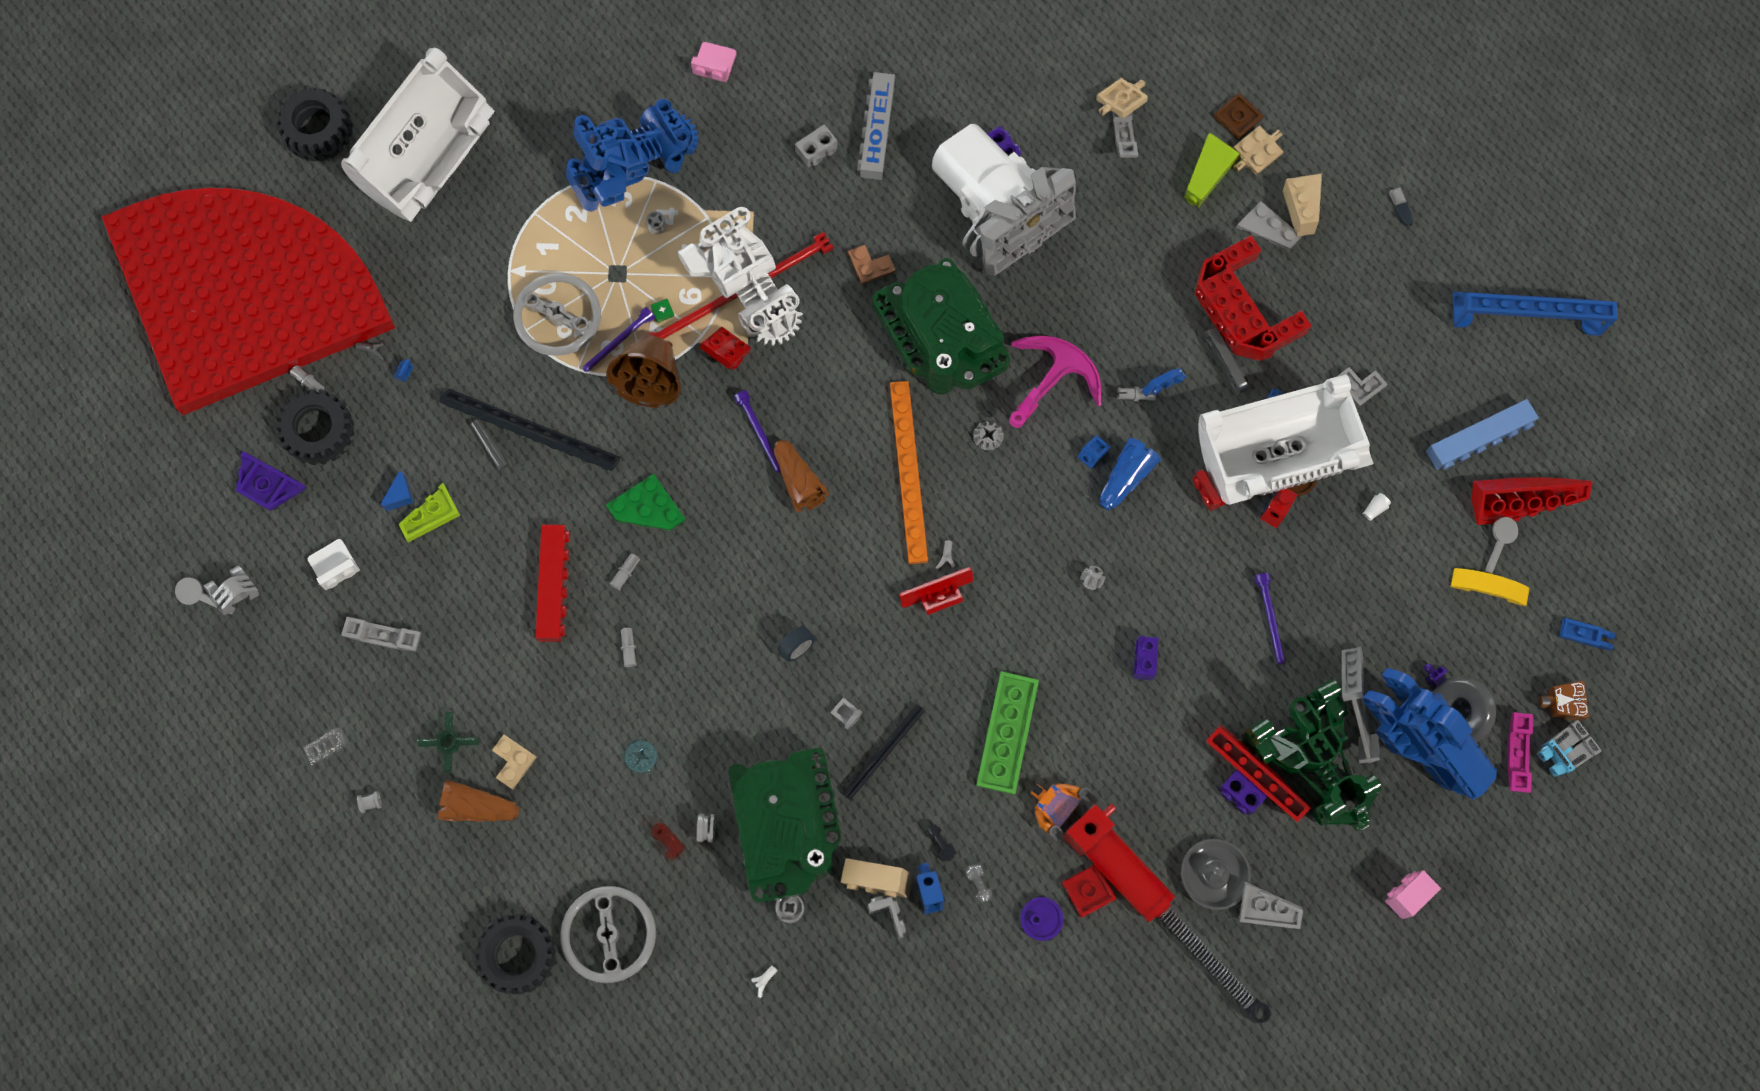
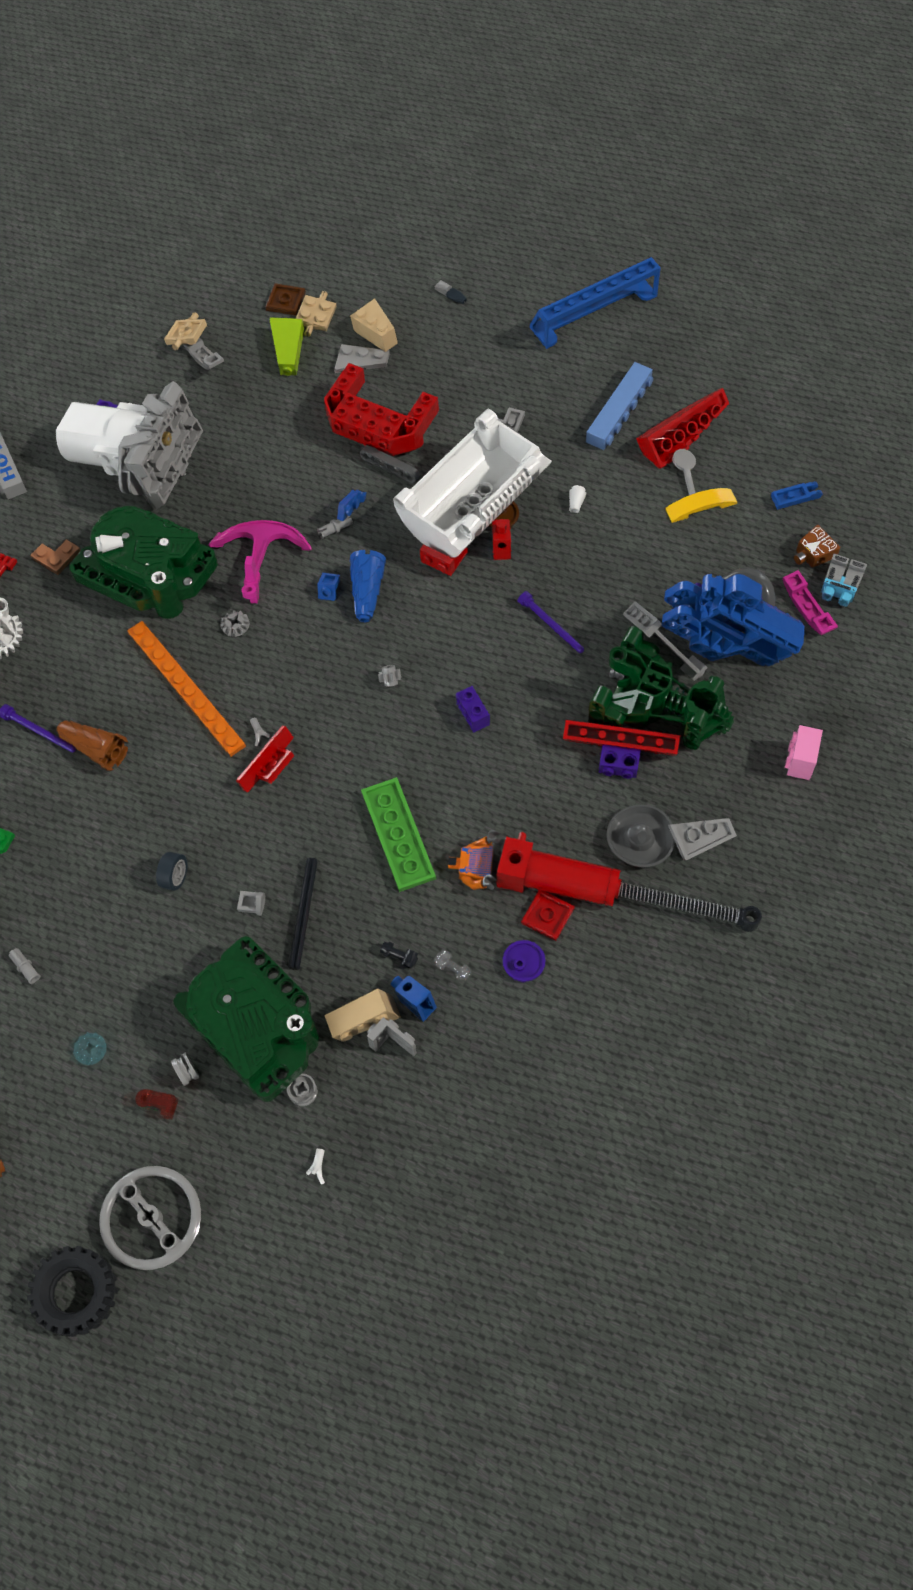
camera: 25 degrees left, 10 degrees down
(919, 299) = (107, 543): none -> white cone

